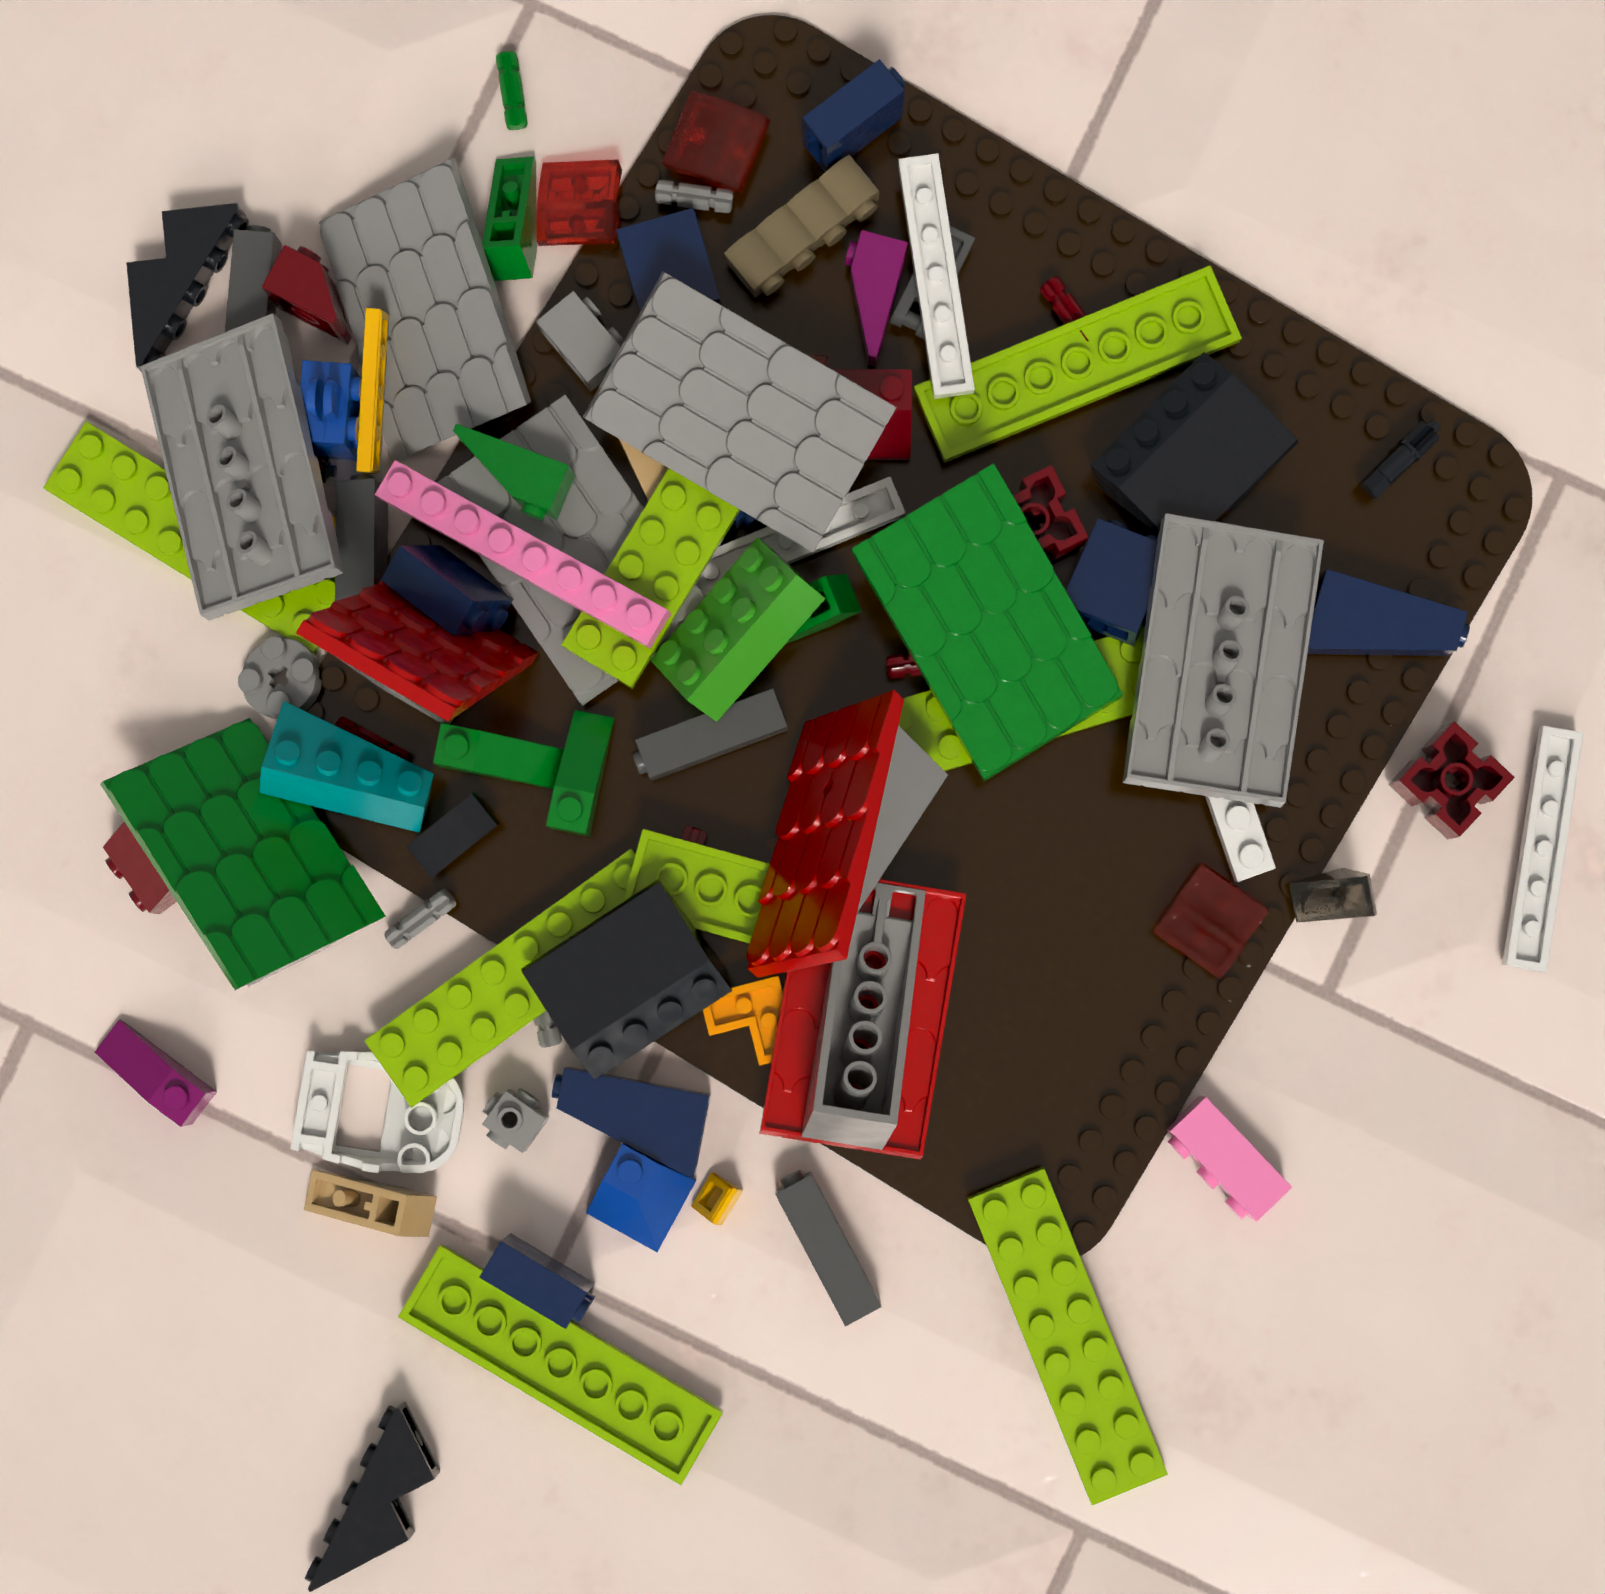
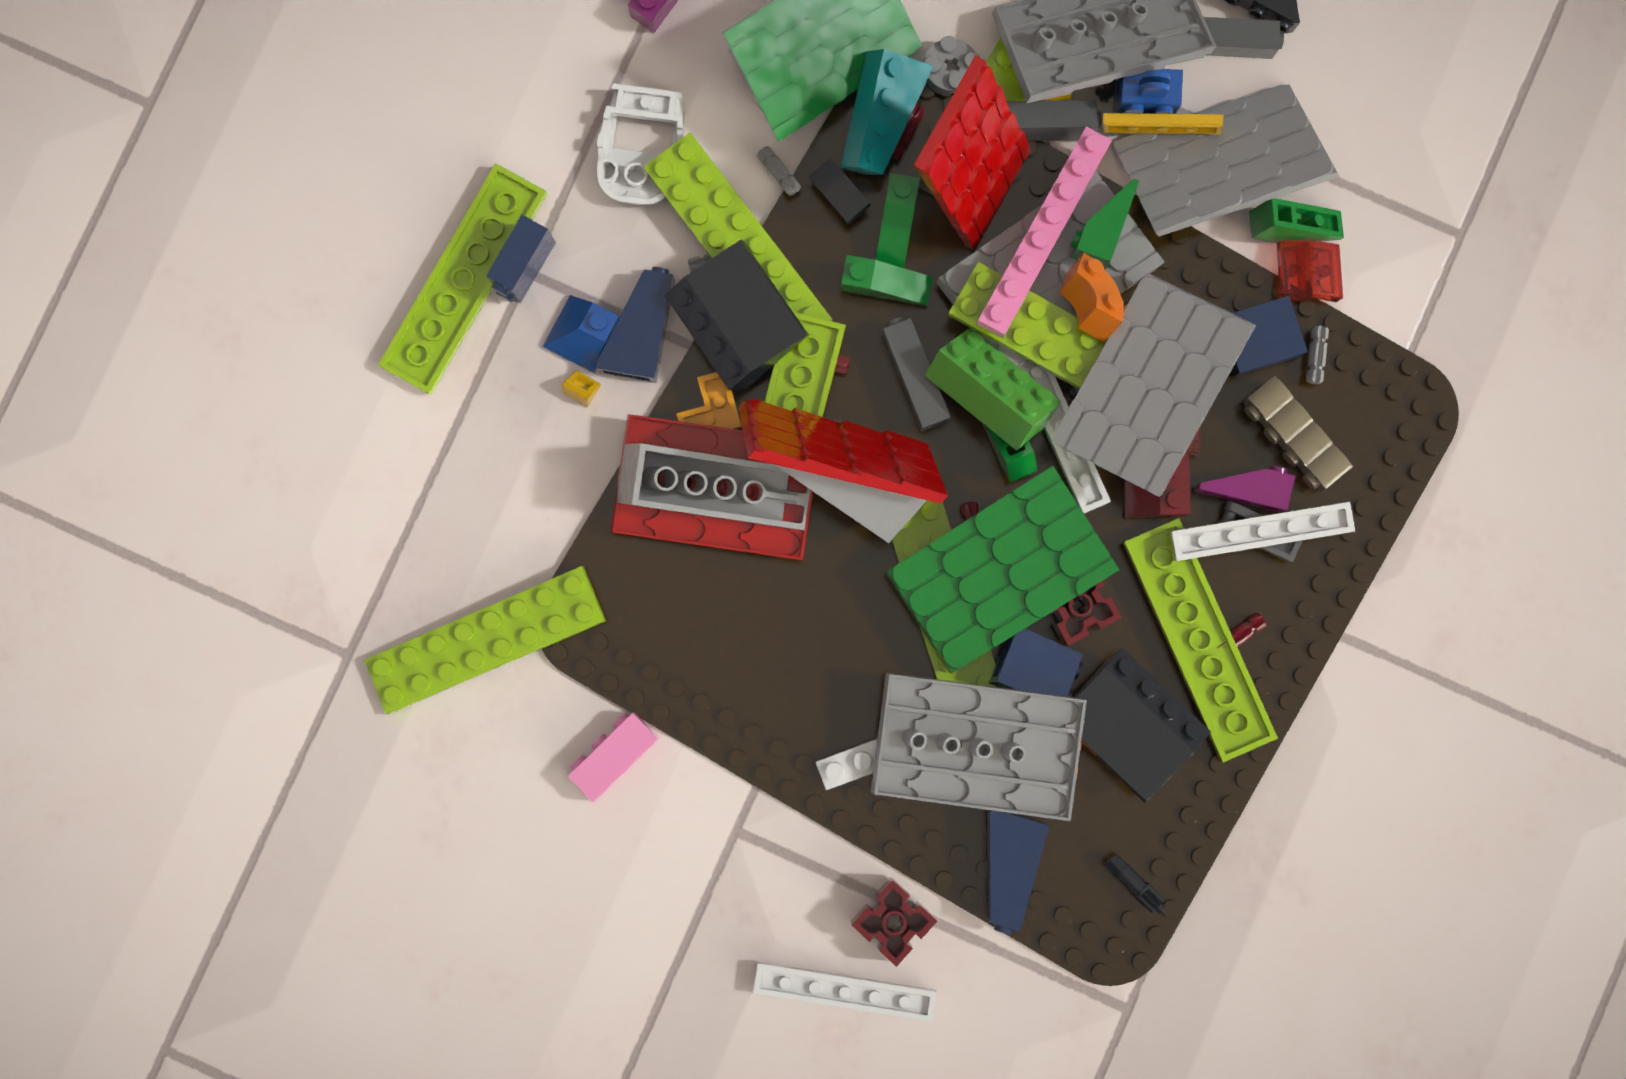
camera: 85 degrees right, 0 degrees up
(306, 291) = (1238, 72): dark red slope -> none
(371, 1204) = (574, 142): tan slope -> none
(374, 1512) = (359, 150): black slope -> none
(447, 590) = (1016, 179): dark blue brick -> none
(511, 90) = (1393, 220): green axle -> none
(529, 1117) = (638, 250): light grey brick -> none
(580, 338) = (1208, 271): light grey brick -> none
(616, 489) = (1093, 297): none -> orange brick
(716, 141) = (1359, 369): clear red slope -> none
(827, 1247) = (547, 466): dark grey brick -> none
(854, 115) = (1382, 469): dark blue brick -> none
(1211, 920) = (787, 743): clear red slope -> none
(1333, 896) = (806, 832): clear smoke slope -> none

